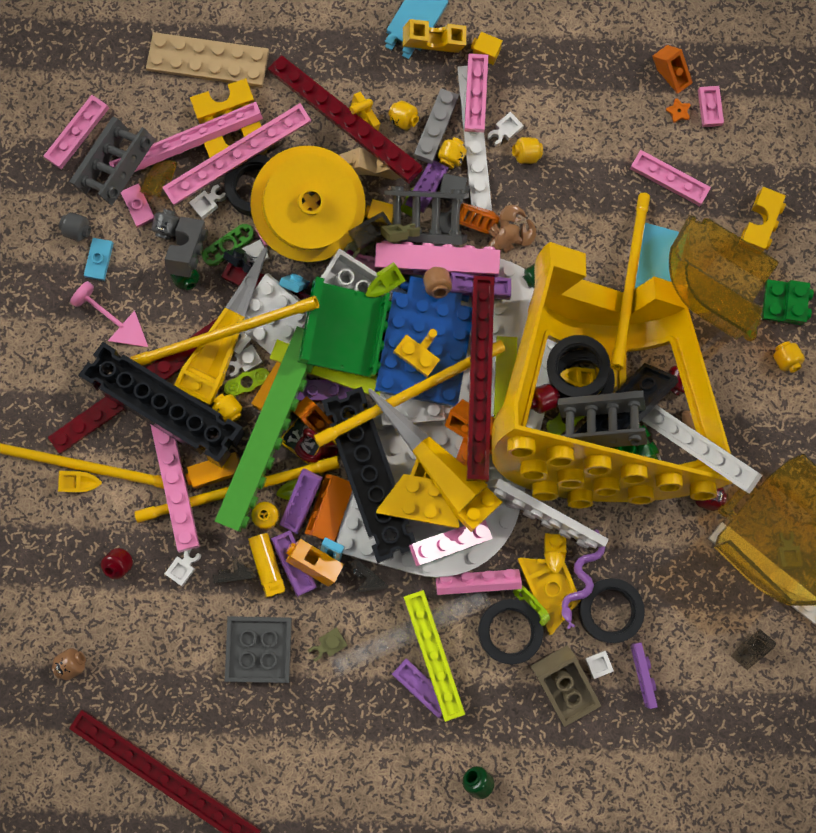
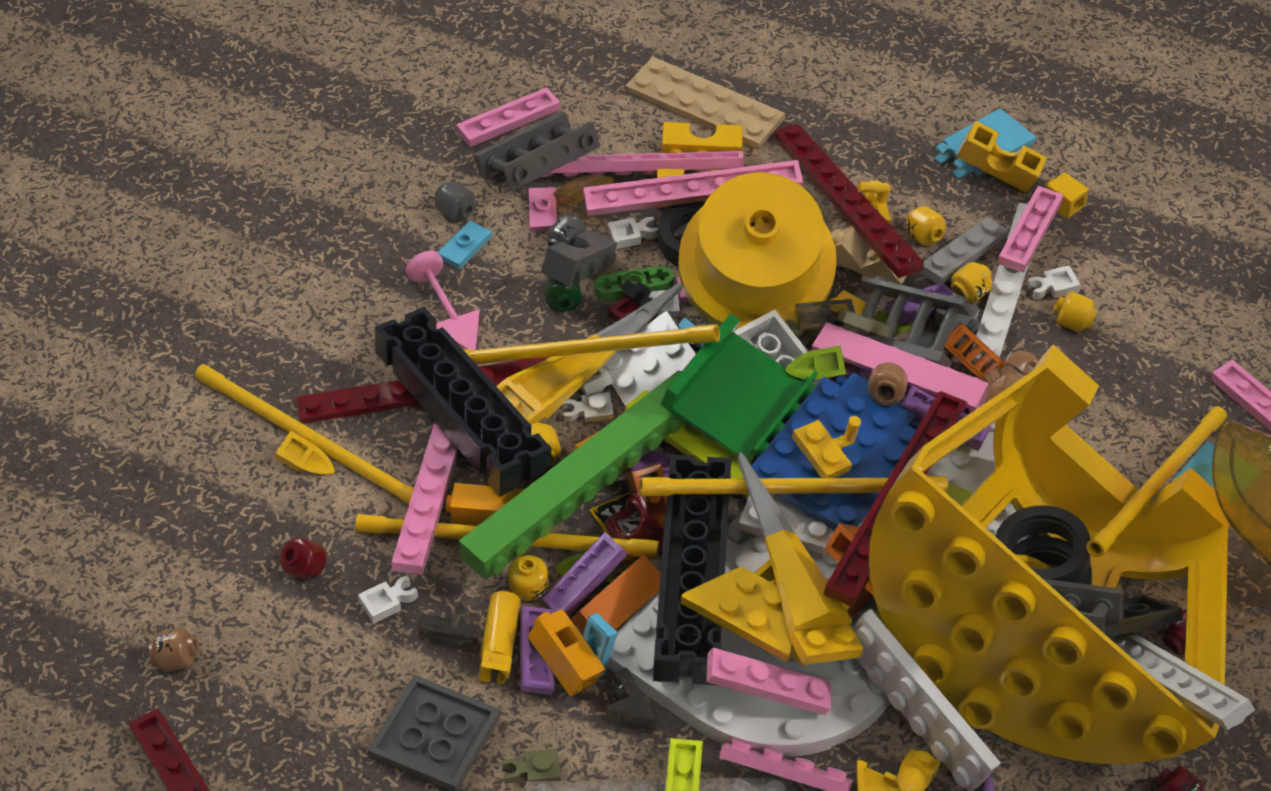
camera: 25 degrees right, 30 degrees down
(234, 385) = (565, 426): lime piece -> none

